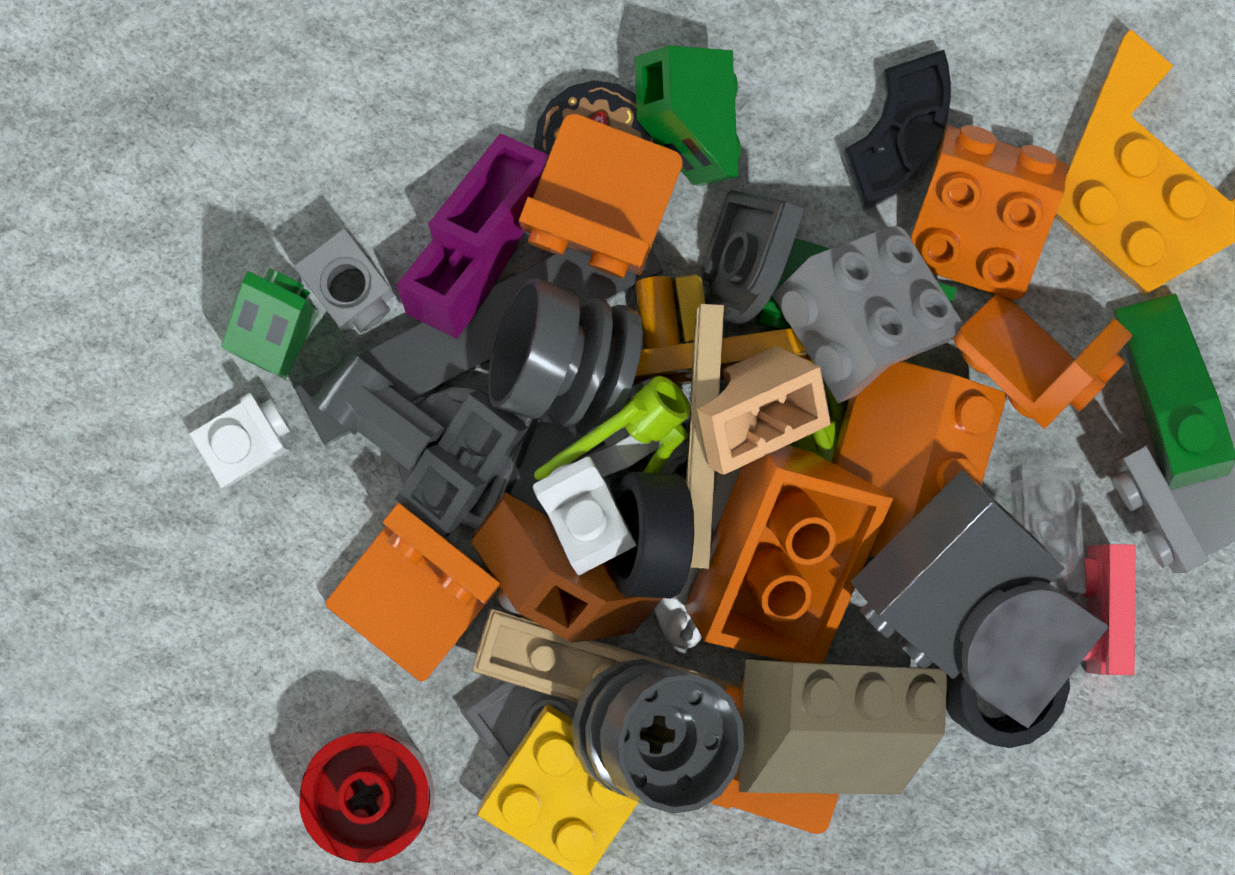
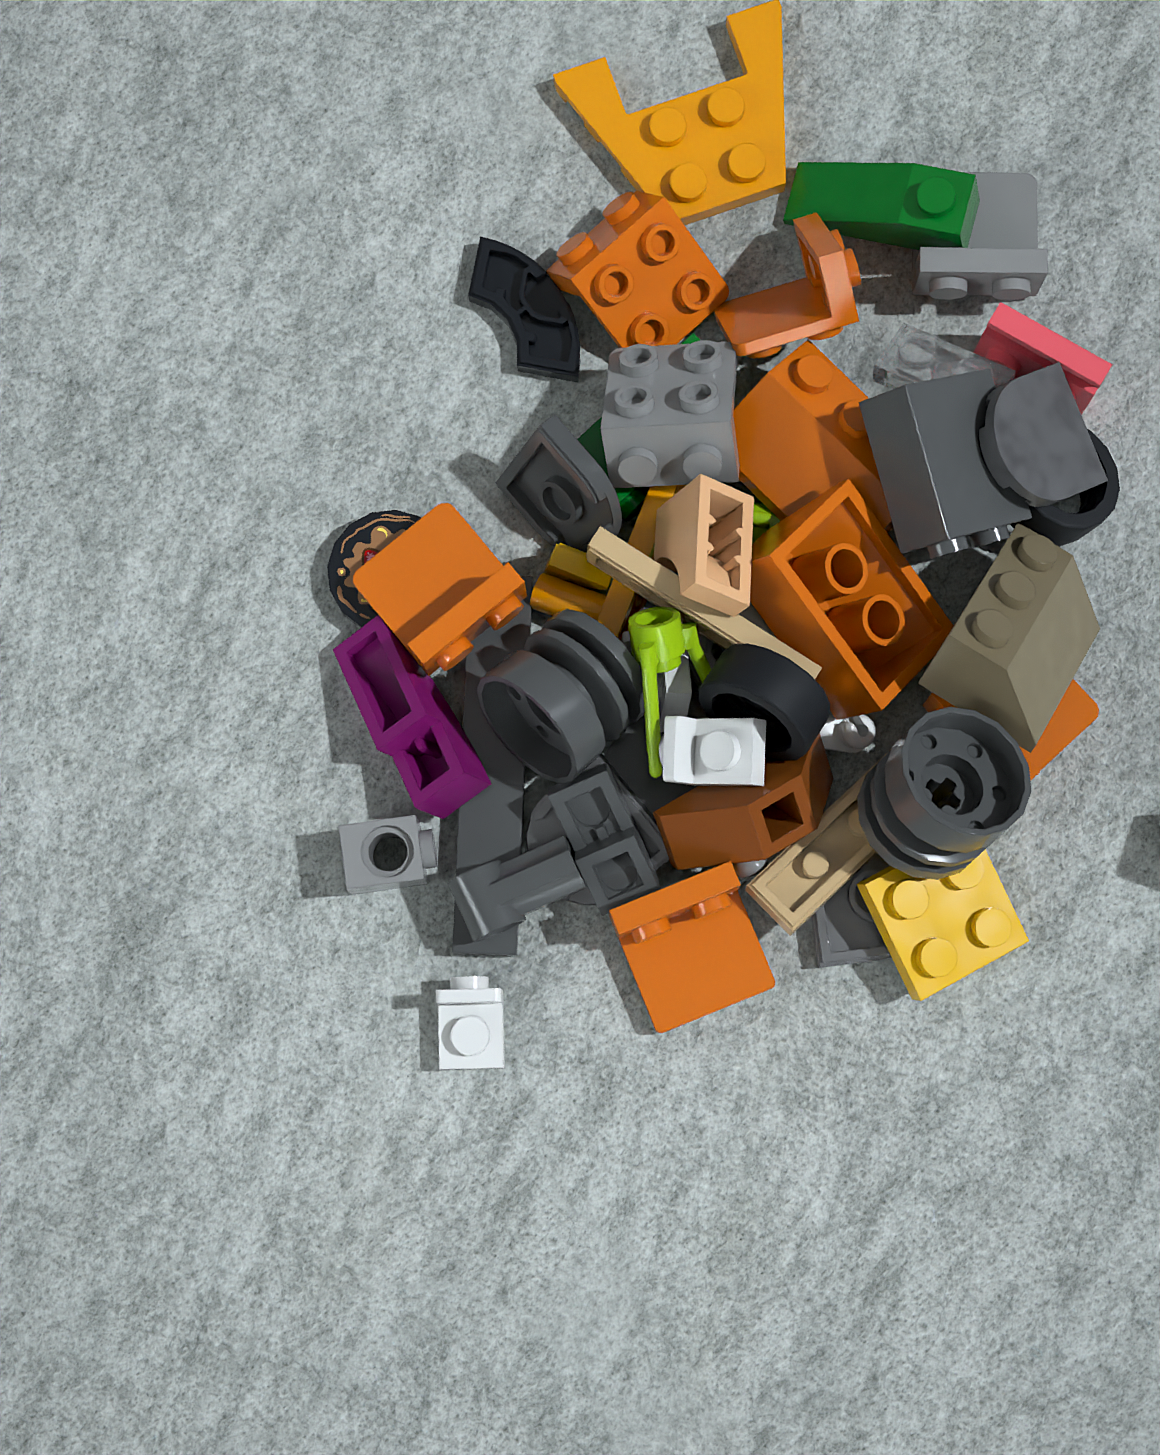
camera: 55 degrees left, 5 degrees down
(270, 322) = (383, 938): slope -> none
(360, 832) = (875, 1058): red brick -> none
(690, 107) = (407, 472): green slope -> none

